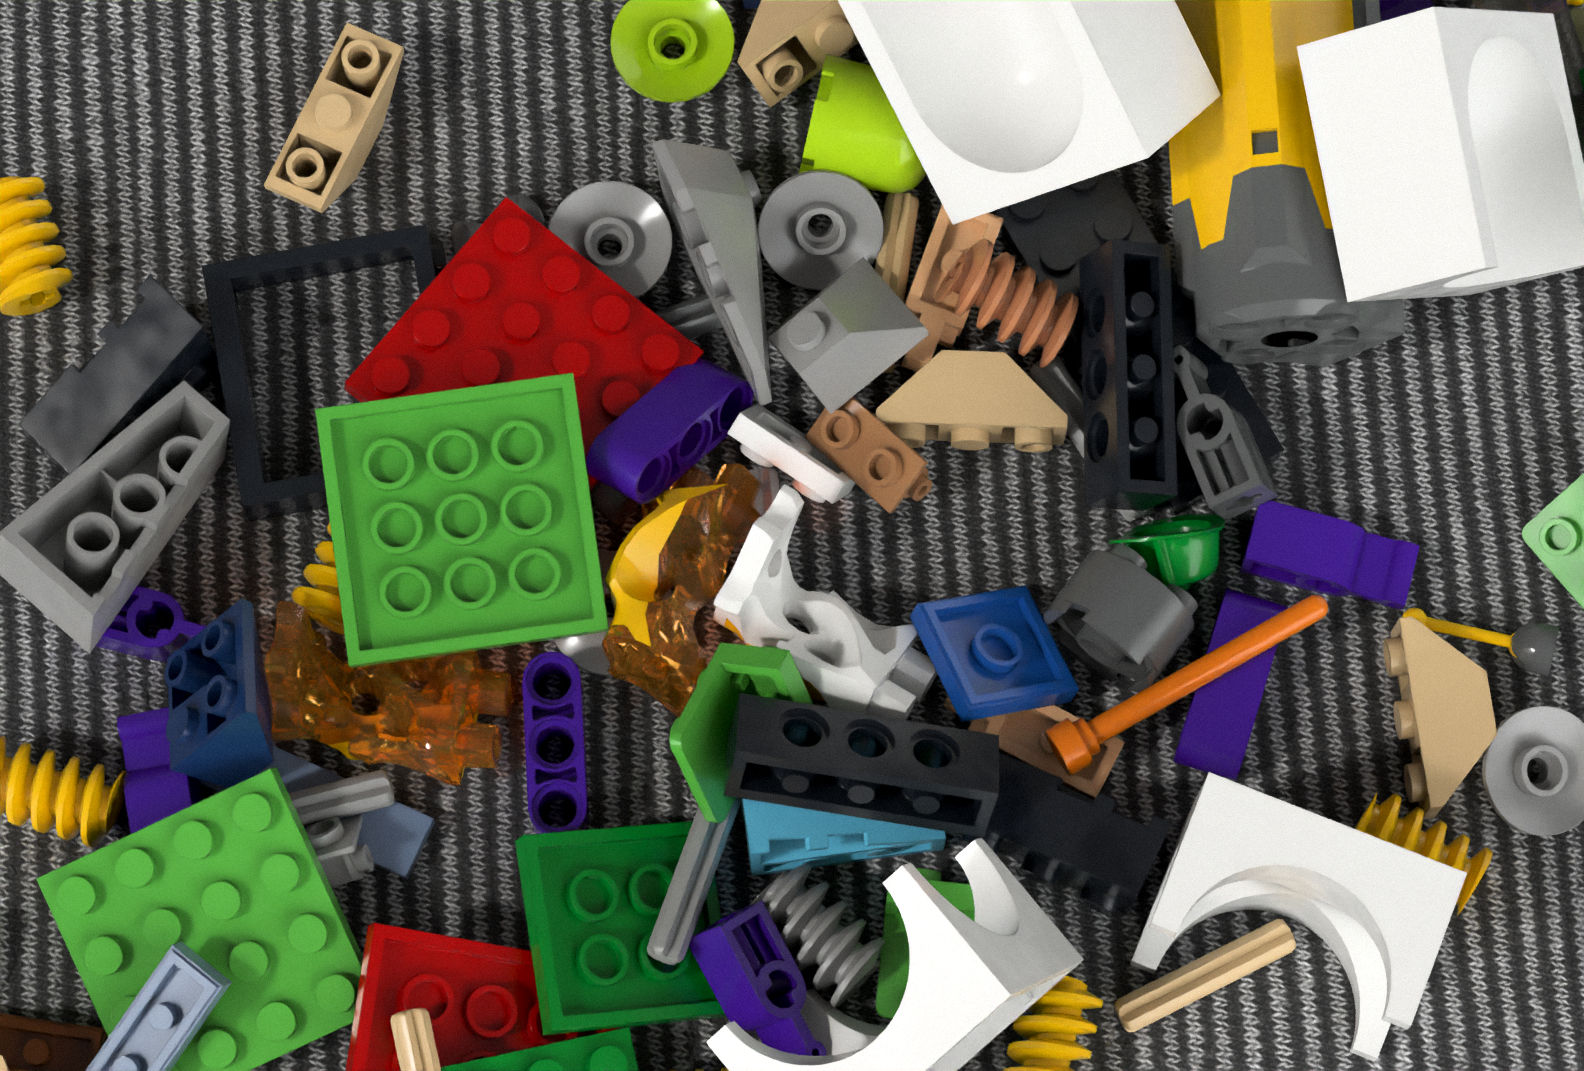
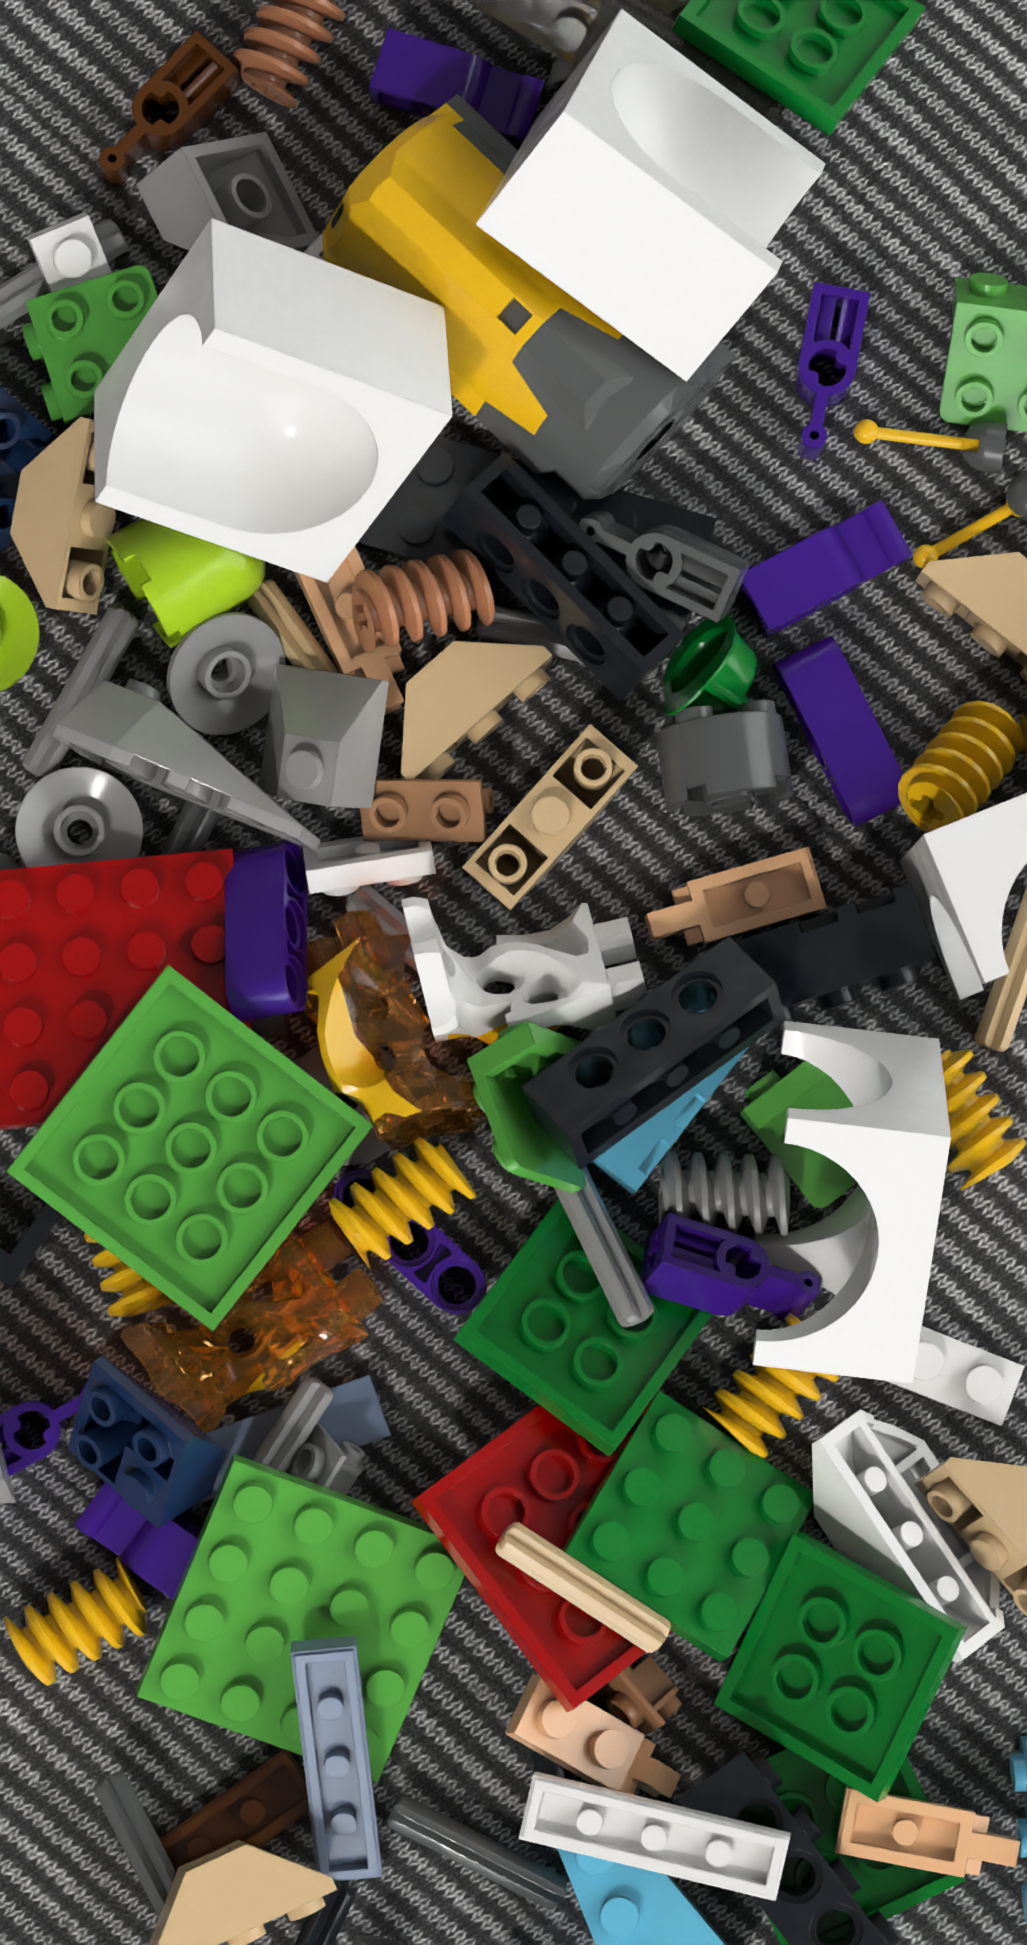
camera: 50 degrees left, 10 degrees up
(574, 701) = (400, 1200): none -> yellow piece
(743, 142) = (94, 666): none -> light grey axle
(953, 543) = (550, 818): none -> tan slope
(993, 653) = (656, 872): blue tile -> none
(1079, 741) = (780, 879): orange piece -> none
(1312, 778) = (961, 765): none -> yellow piece
(1492, 395) = (840, 352): none -> dark purple piece
(1533, 577) = (980, 446): none -> hinge

